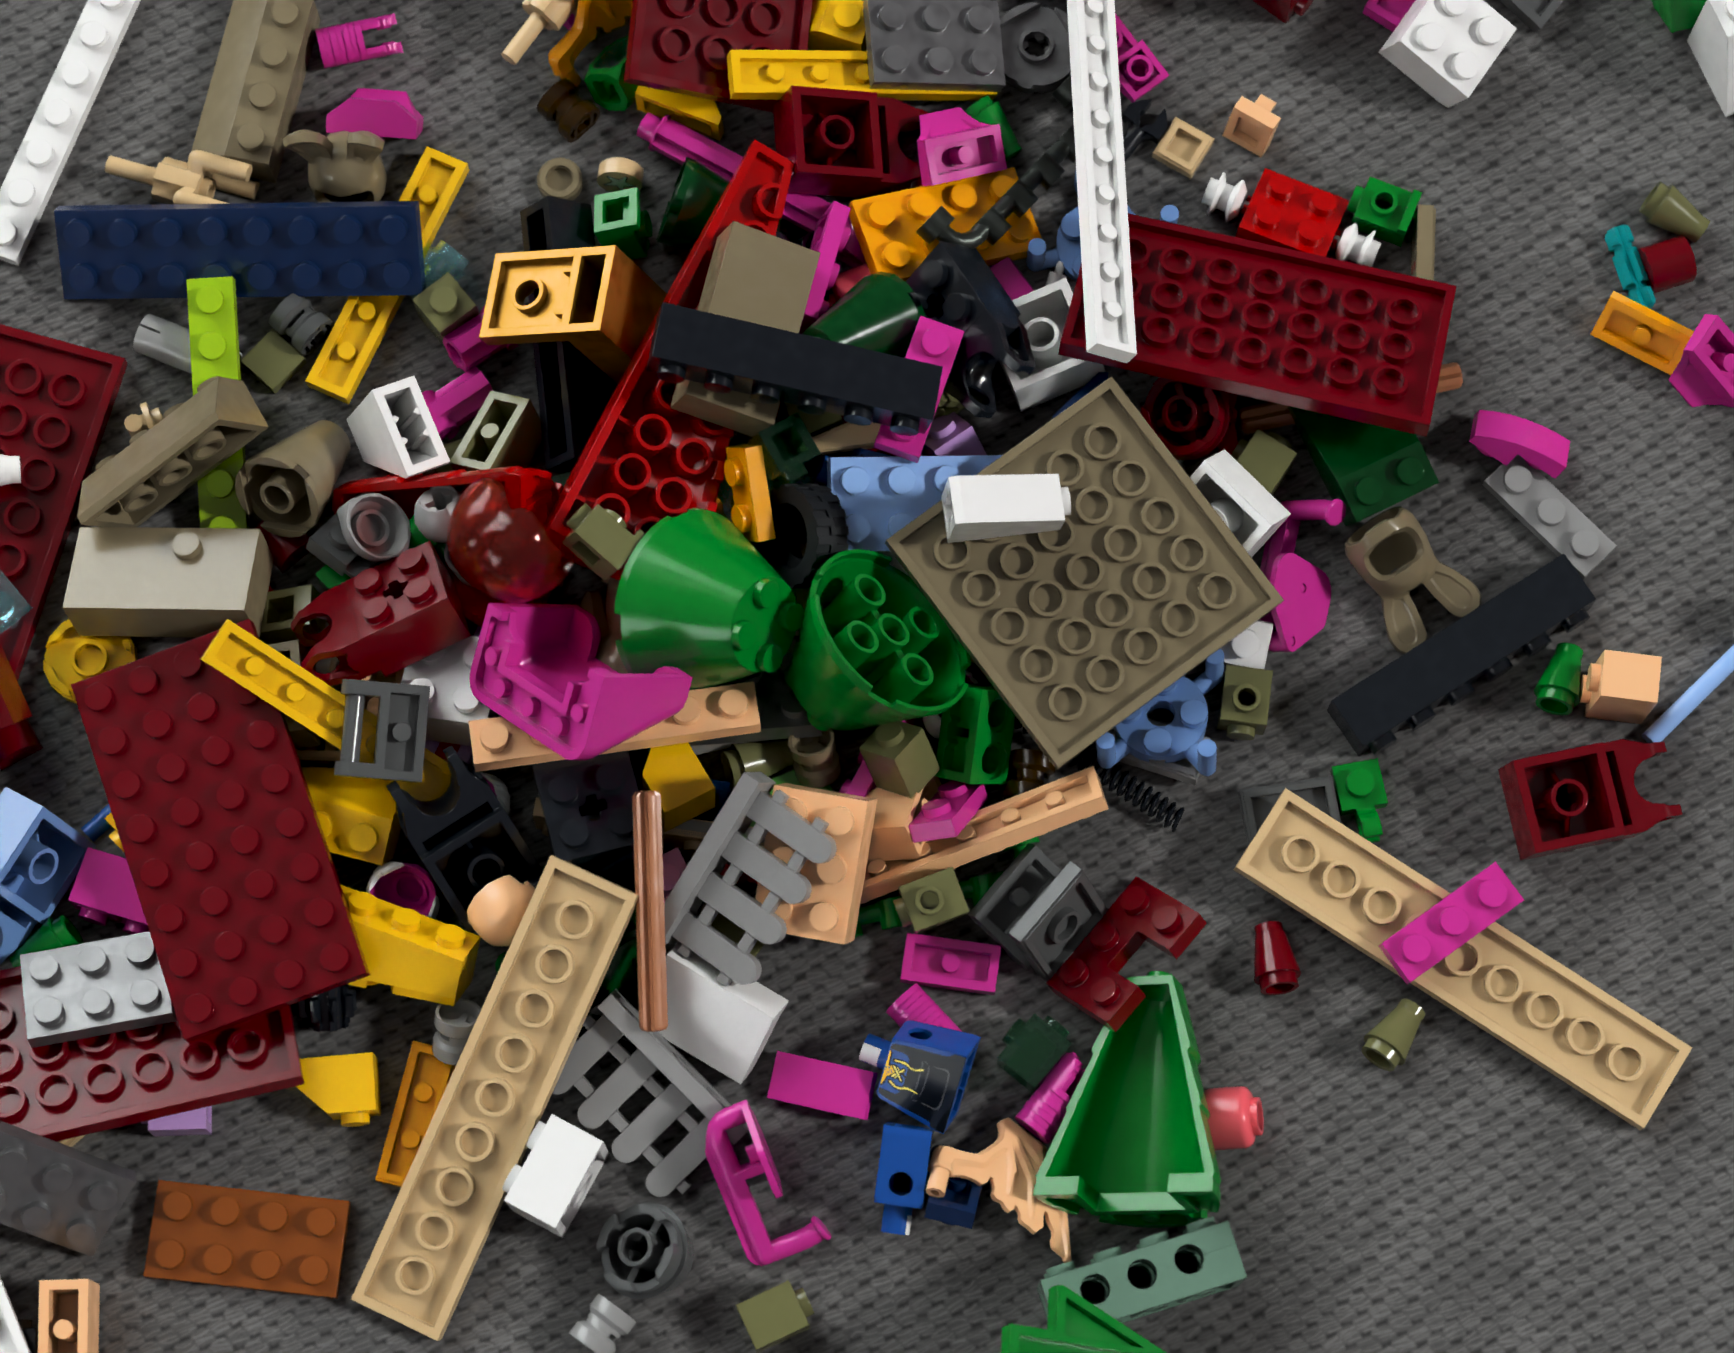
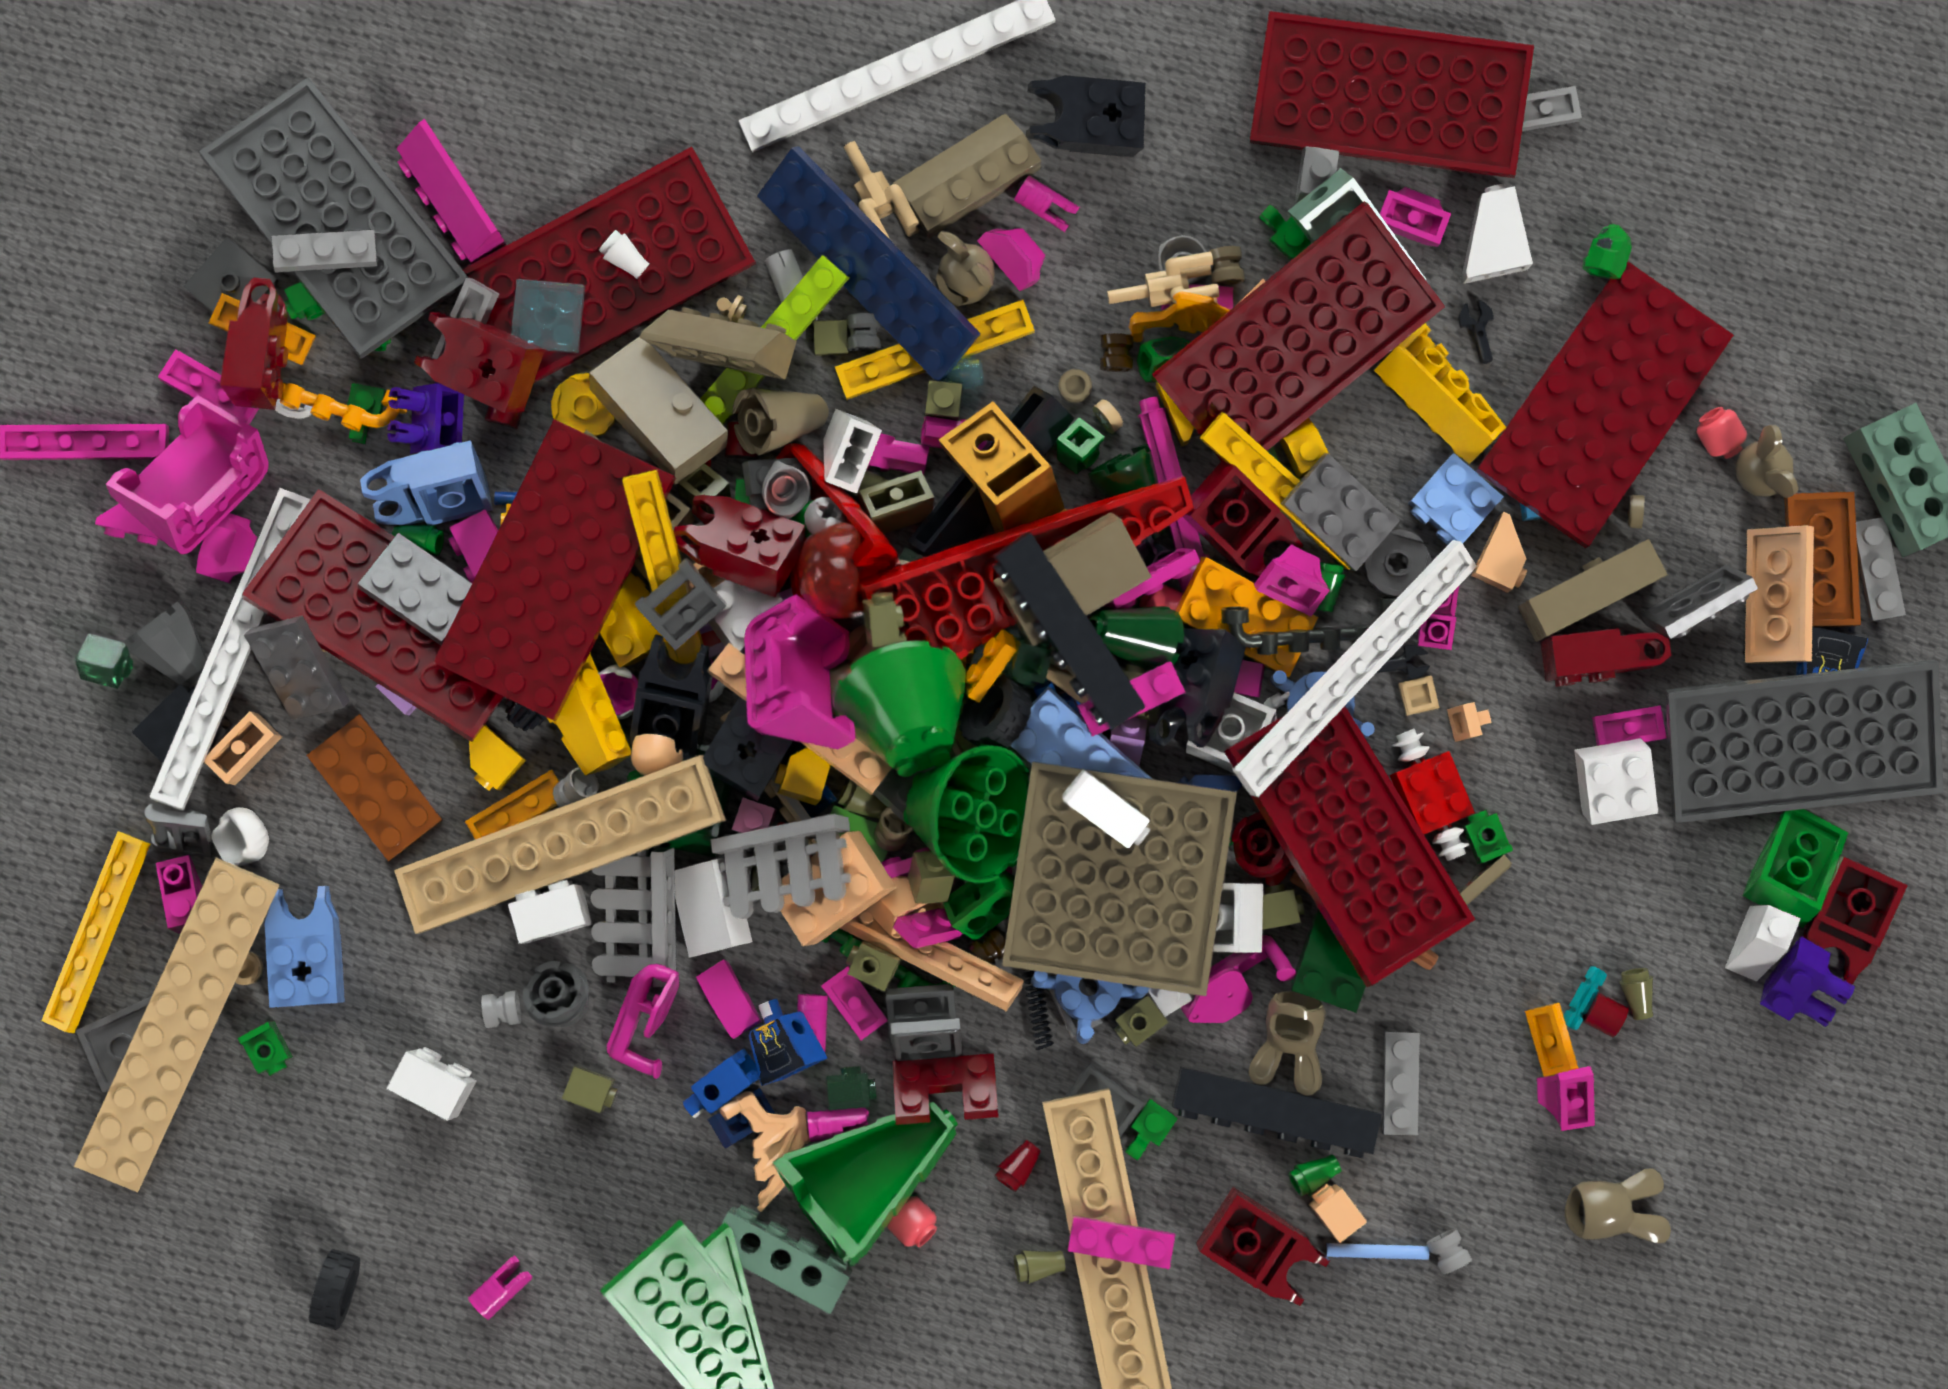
camera: 45 degrees right, 10 degrees up
(650, 910) = (722, 832): nougat axle -> none
(1507, 436) = (1422, 1023): dark pink slope -> none

